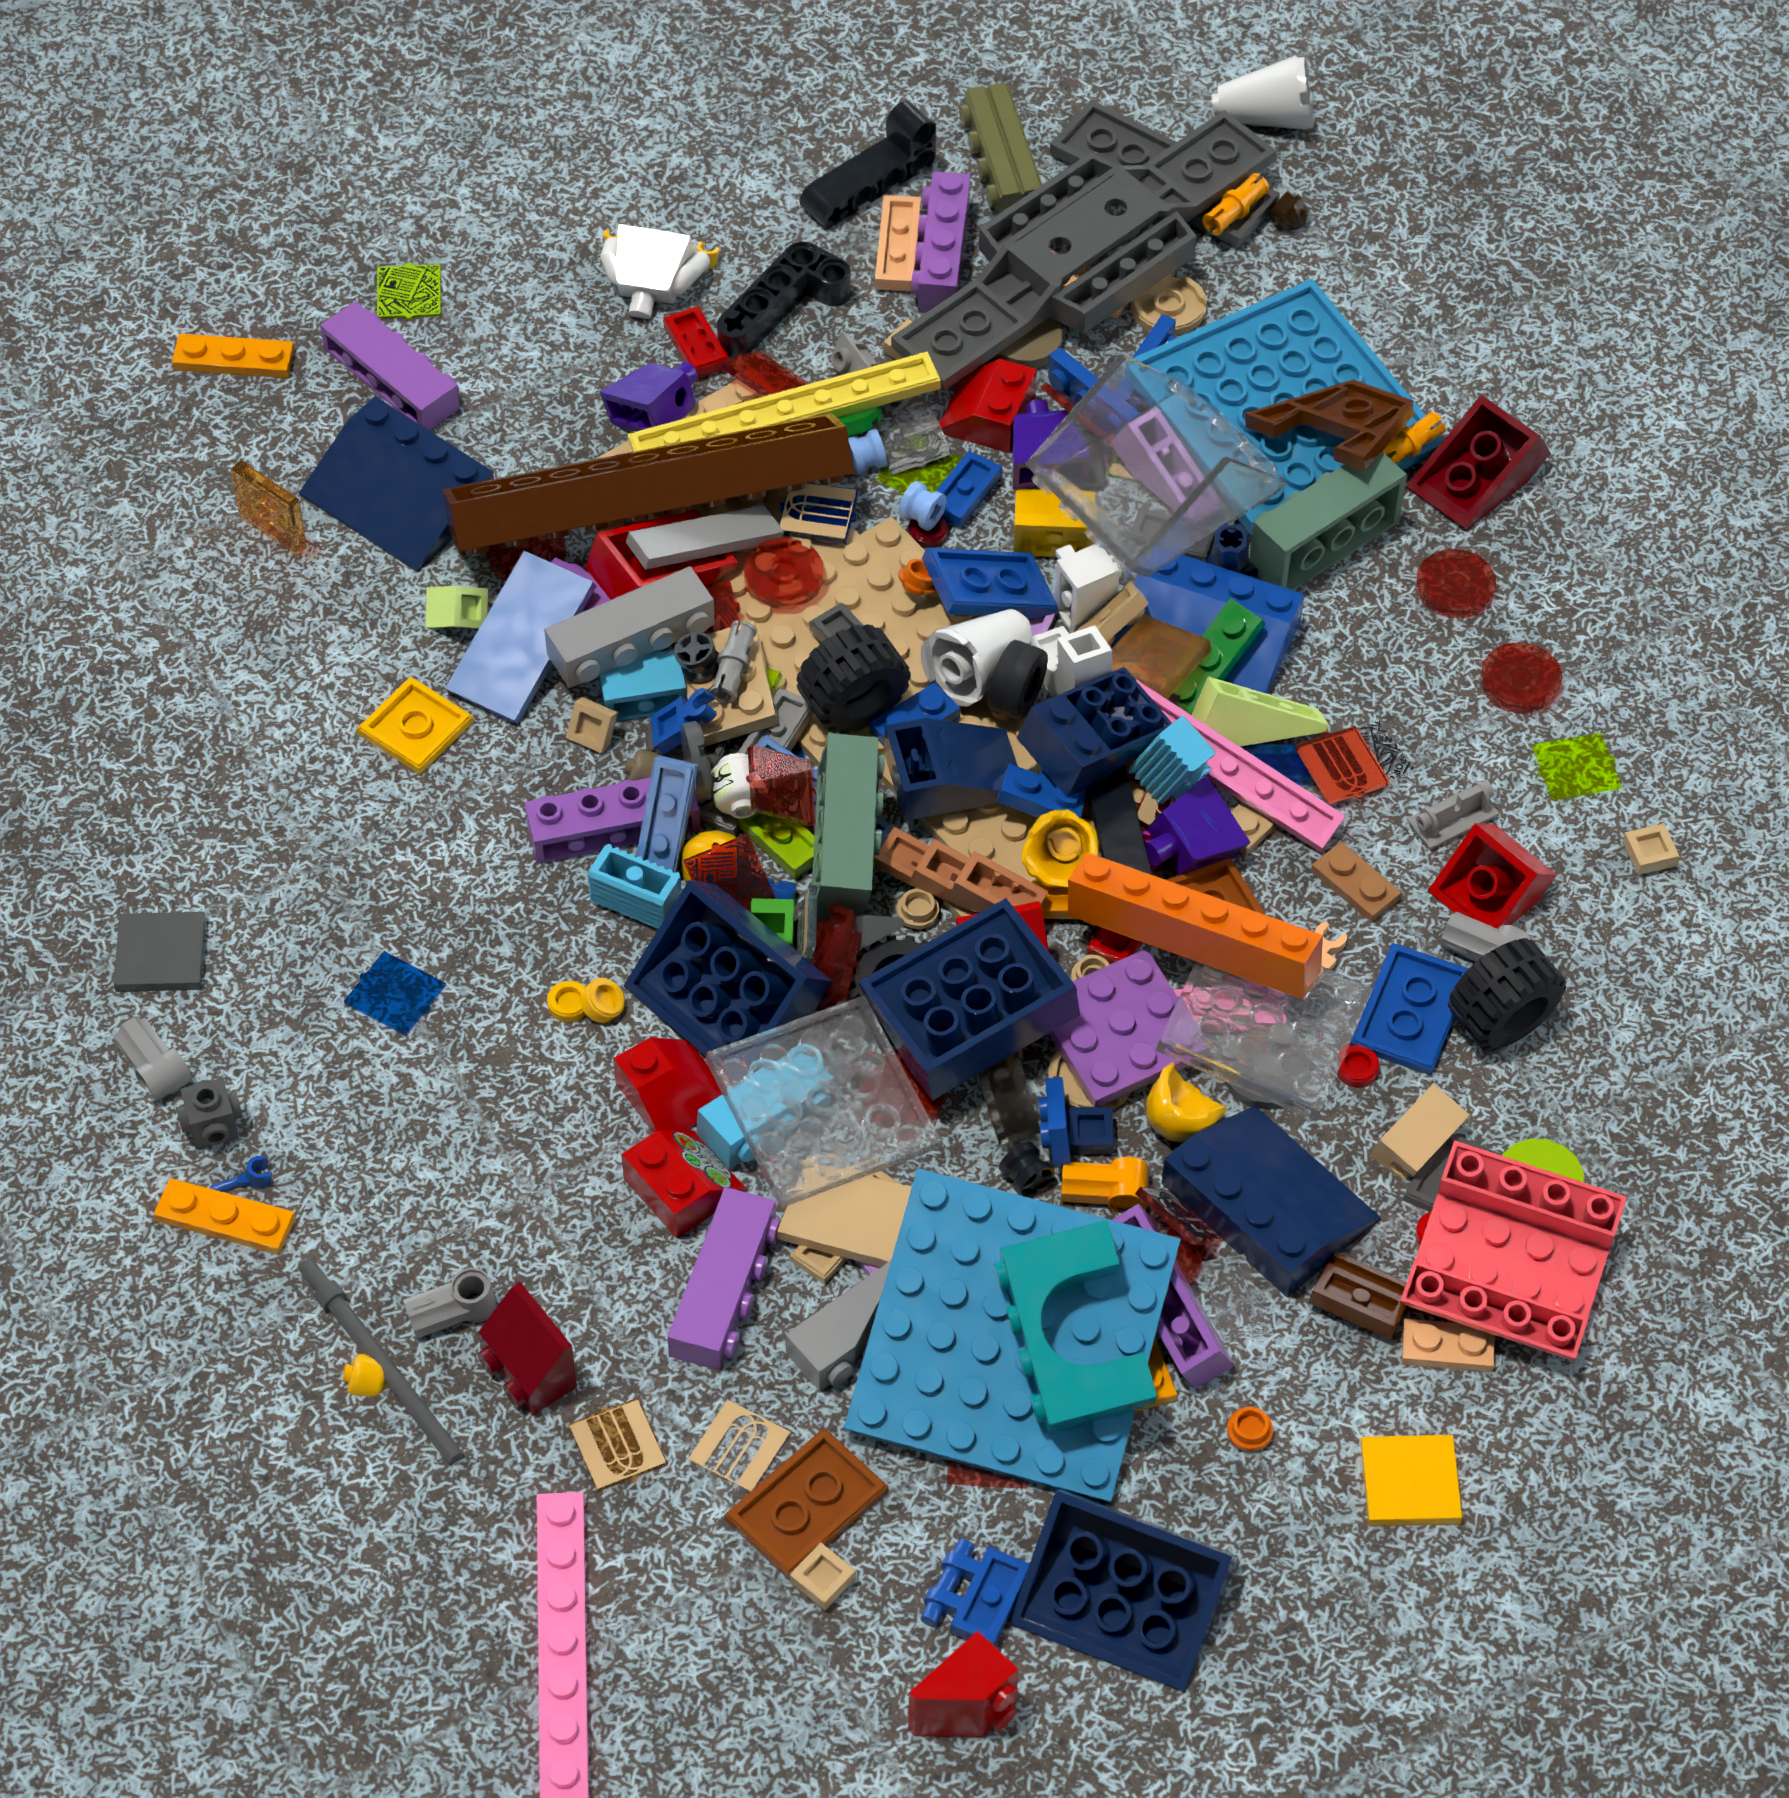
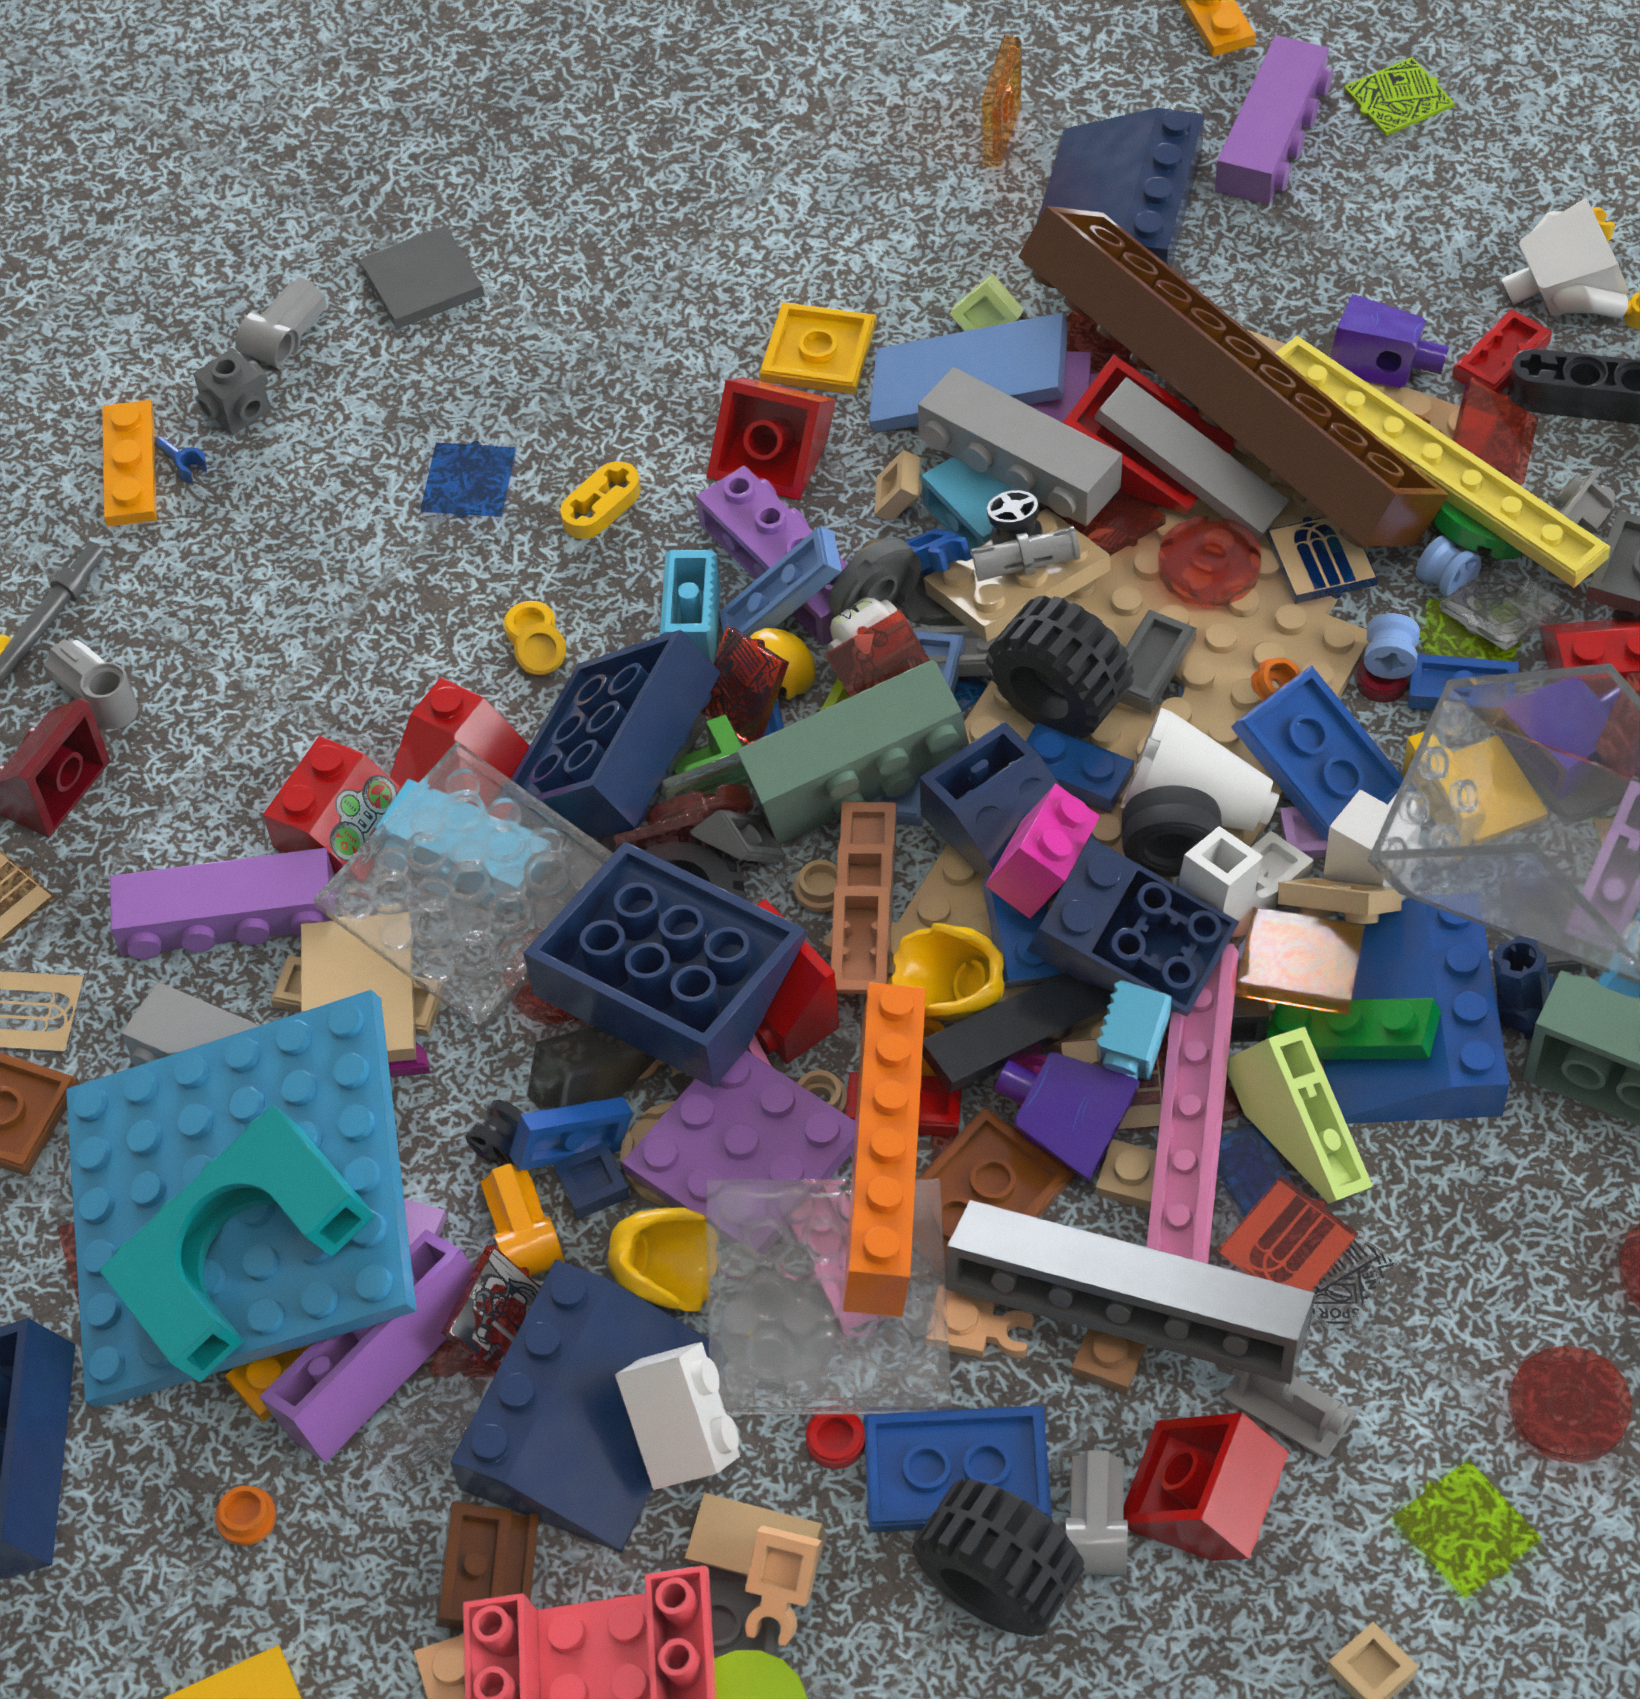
camera: 70 degrees right, 0 degrees up
(469, 917) = (604, 503): none -> yellow beam
(491, 781) = (771, 433): none -> red slope
(1012, 744) = (1042, 851): none -> dark pink brick
(1320, 1130) = (678, 1415): none -> white brick
(1358, 843) = (1129, 1291): none -> brick
(1463, 1115) = (783, 1574): none -> light nougat plate

